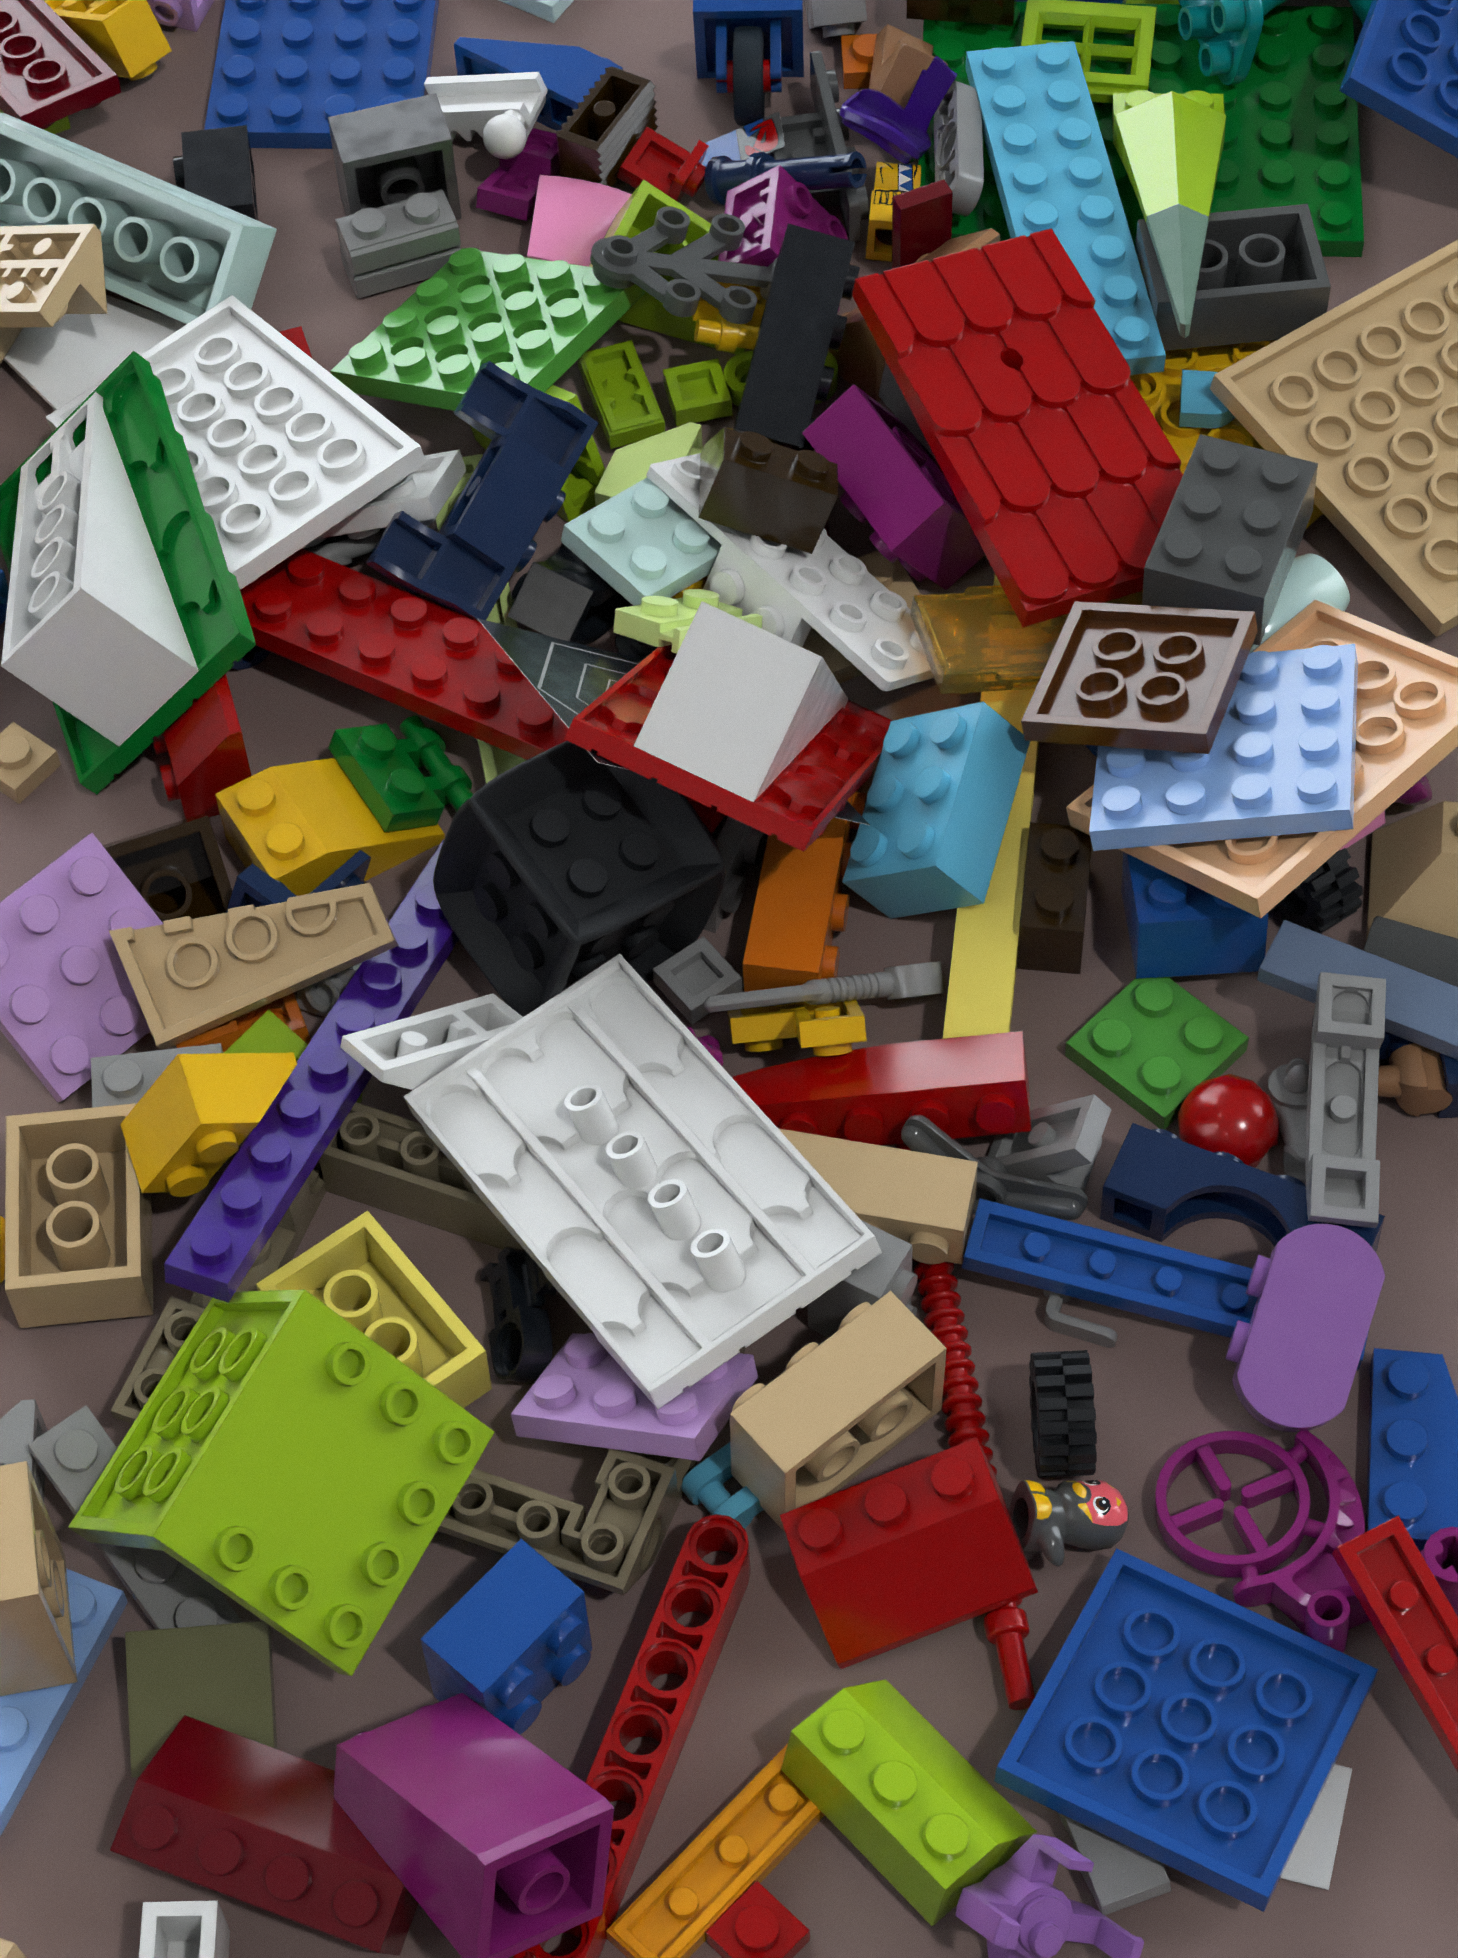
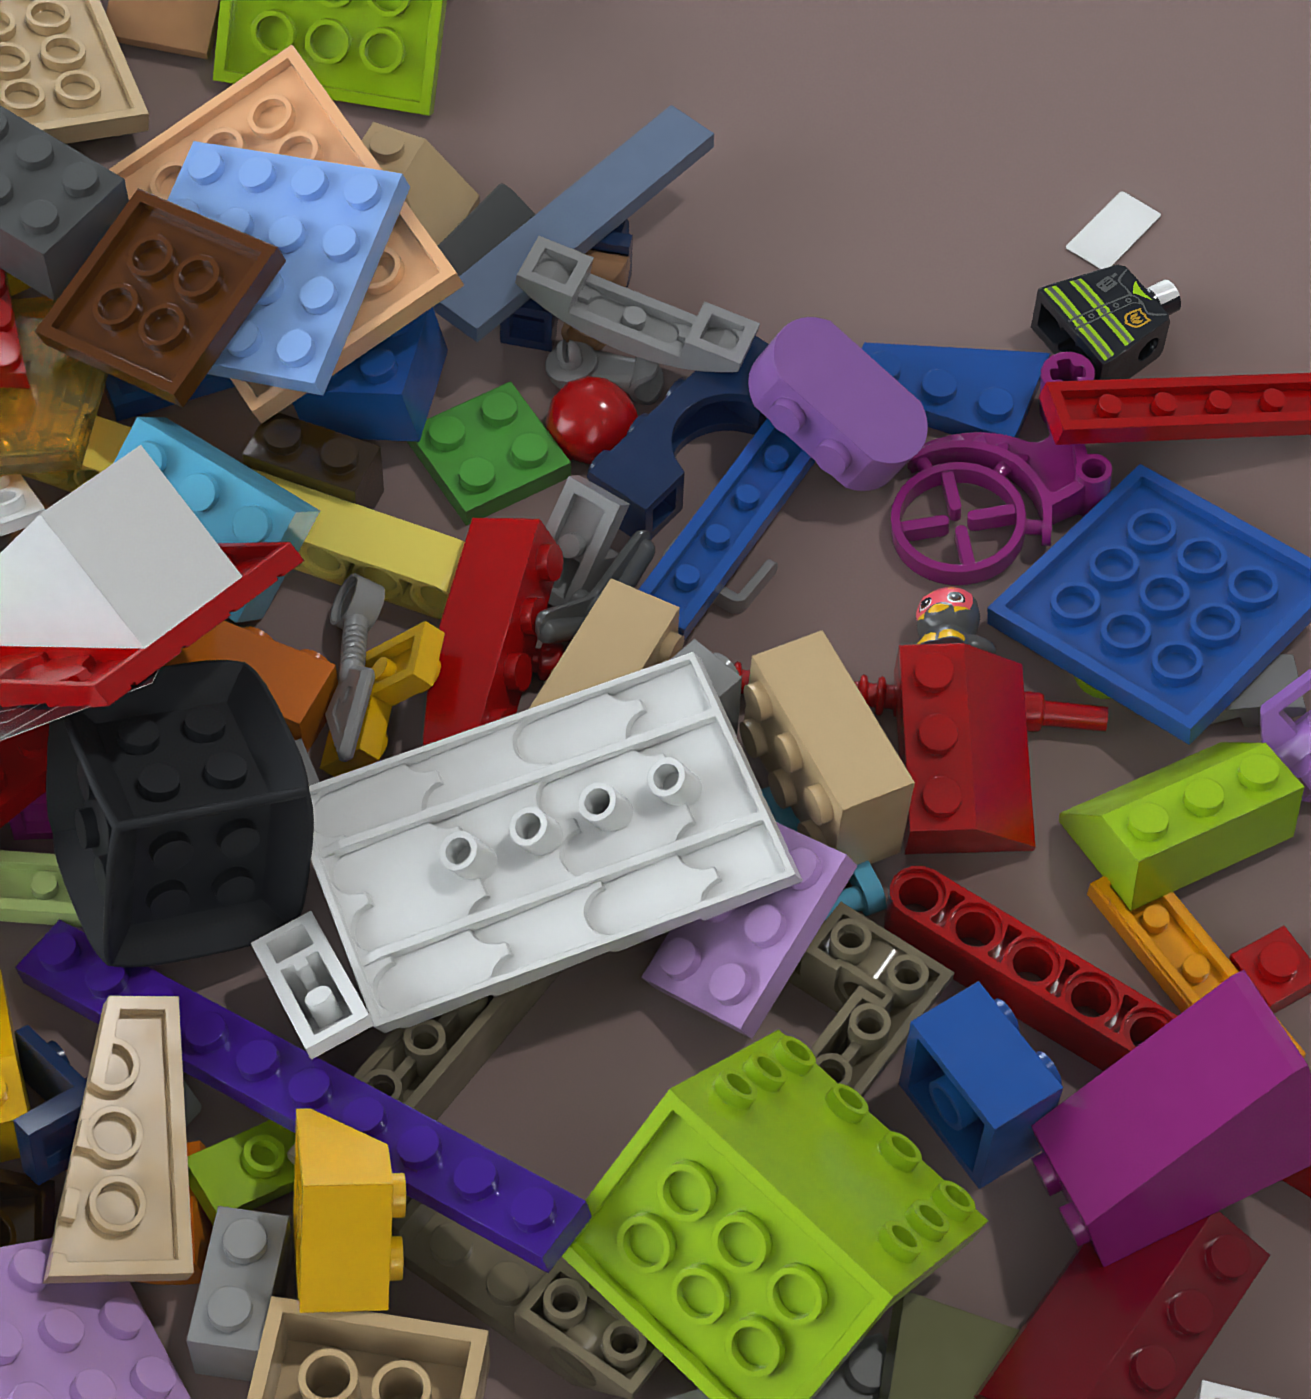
camera: 80 degrees left, 0 degrees up
(388, 1299) = (585, 1115): light yellow slope -> none
(522, 1334) = (594, 1011): black piece -> none
(1063, 1414) = (859, 601): black tyre -> none

